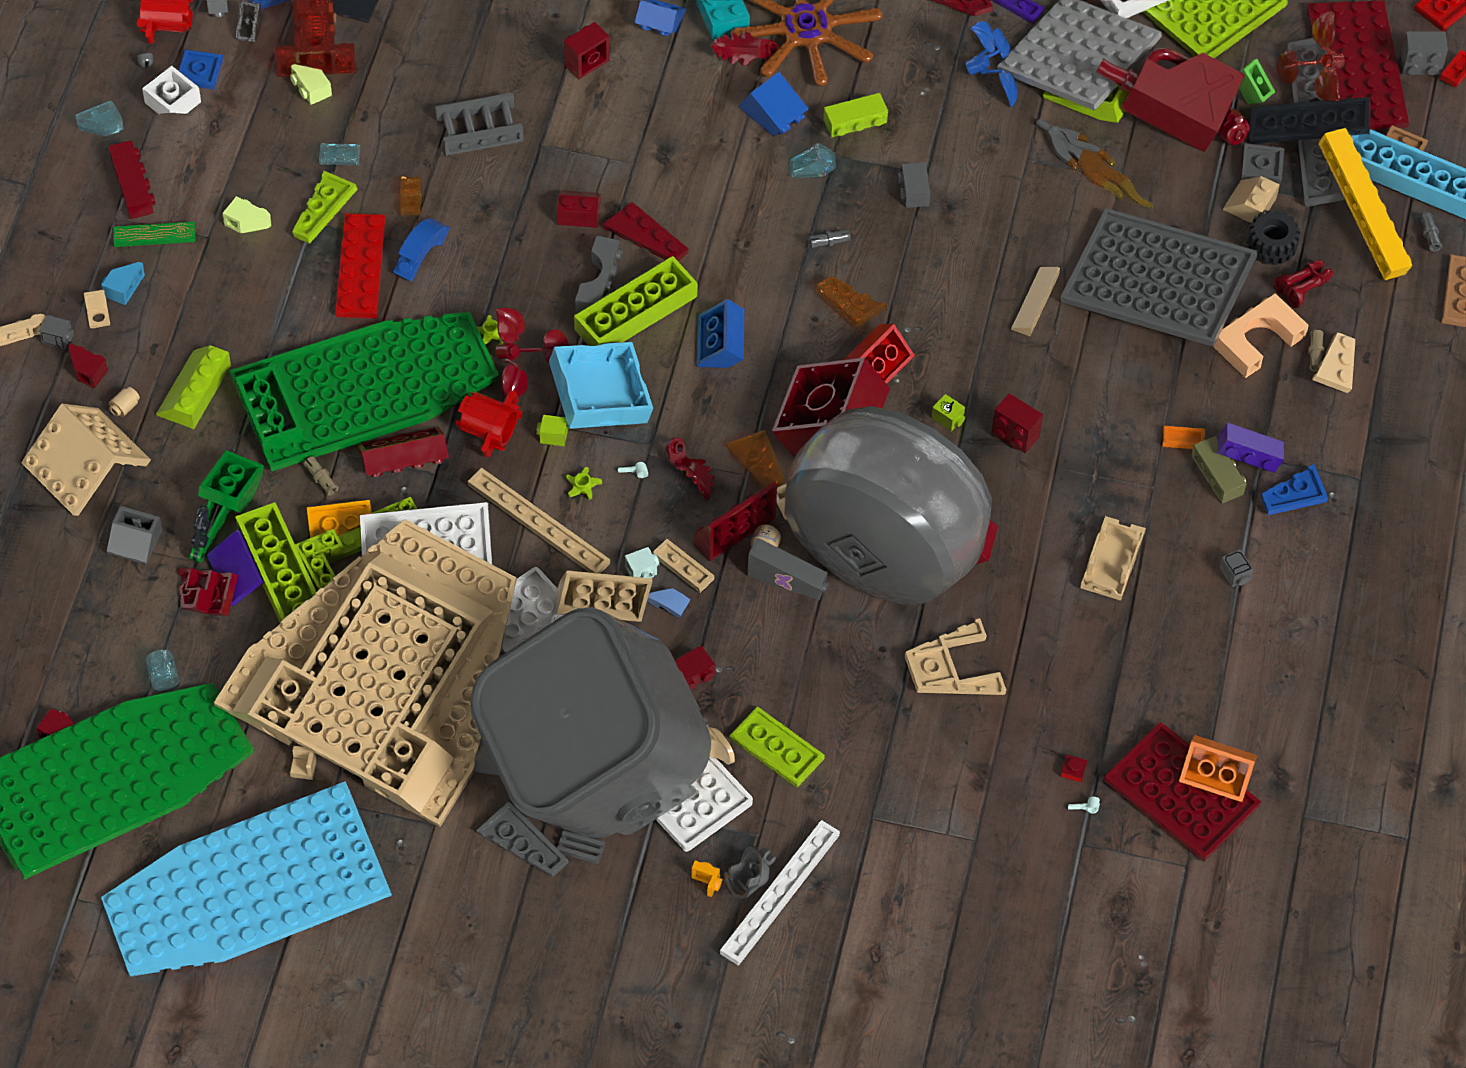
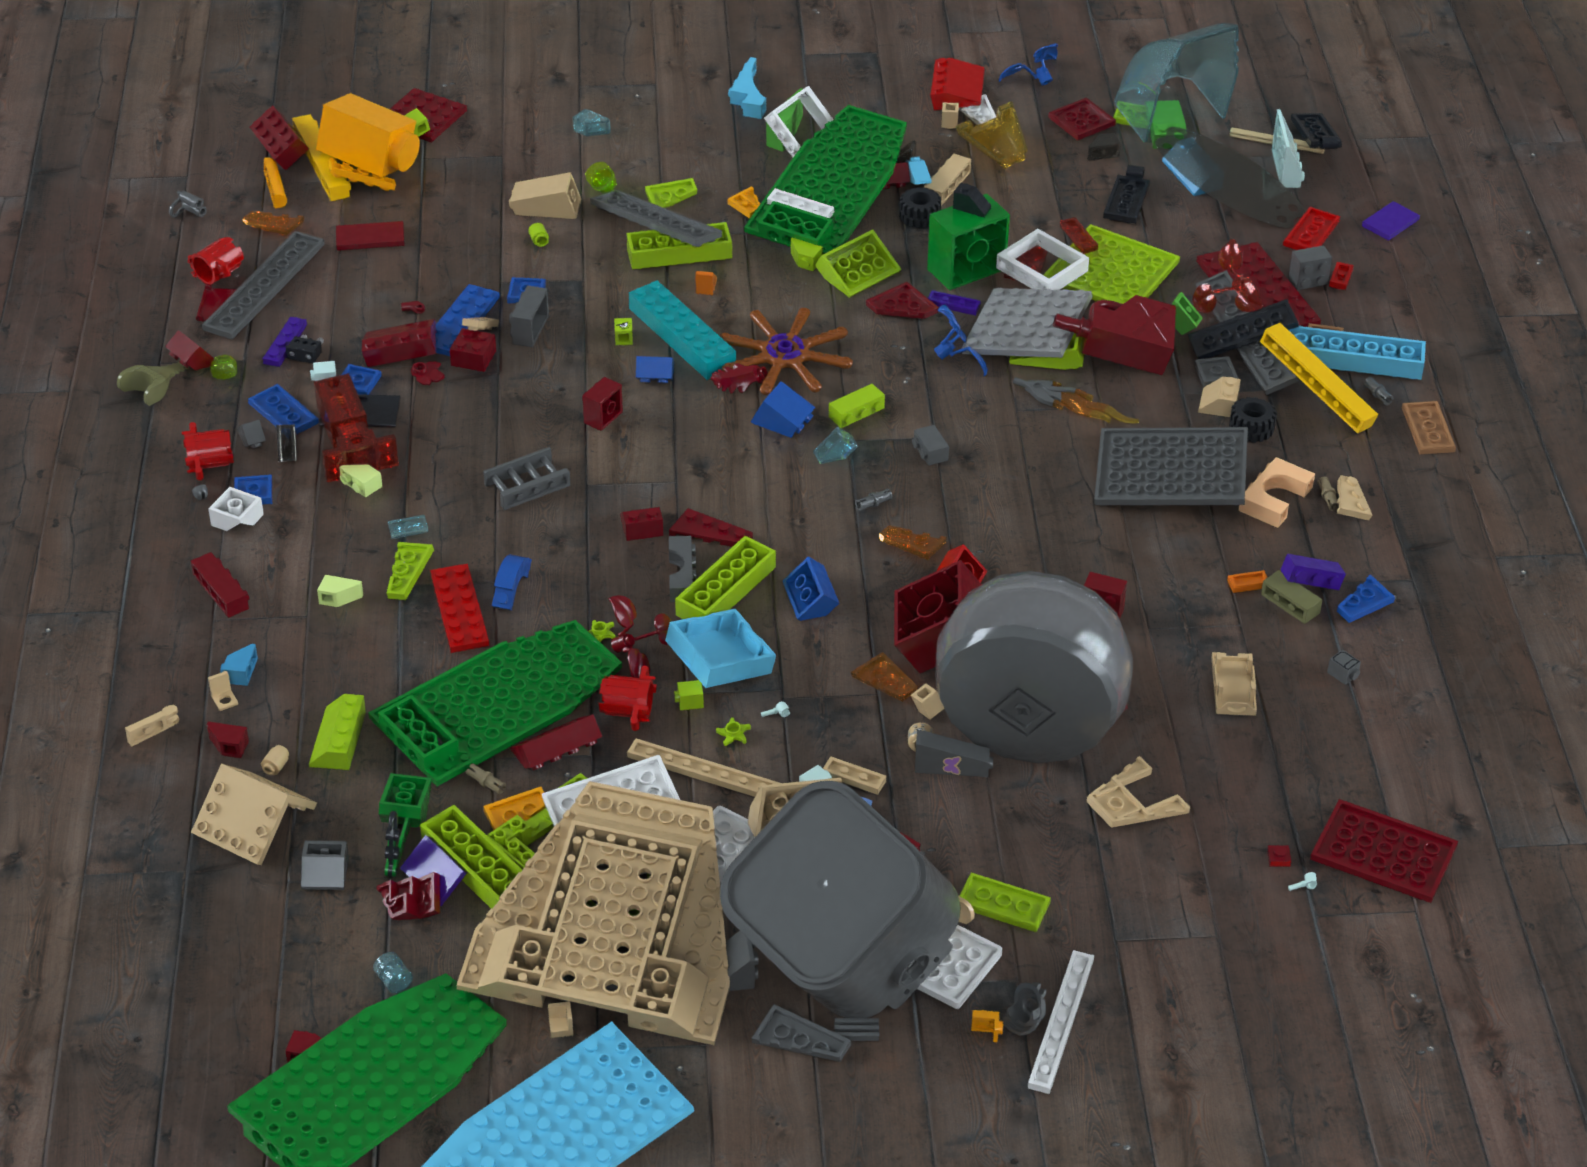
camera: 15 degrees left, 15 degrees down
(56, 331) = (189, 718): dark grey brick -> none
(100, 120) = (174, 545): clear light blue slope -> none
(154, 234) = (256, 623): green tile -> none
(410, 196) = (484, 545): clear orange slope -> none
(693, 467) = (809, 686): dark red plant -> none
(737, 523) = (890, 727): dark red slope -> none
(1035, 300) = (1073, 507): tan slope -> none
(1218, 768) = (1410, 821): orange slope -> none
(1234, 128) = (1183, 351): dark red head -> none
(1296, 293) = (1291, 454): dark red piece -> none

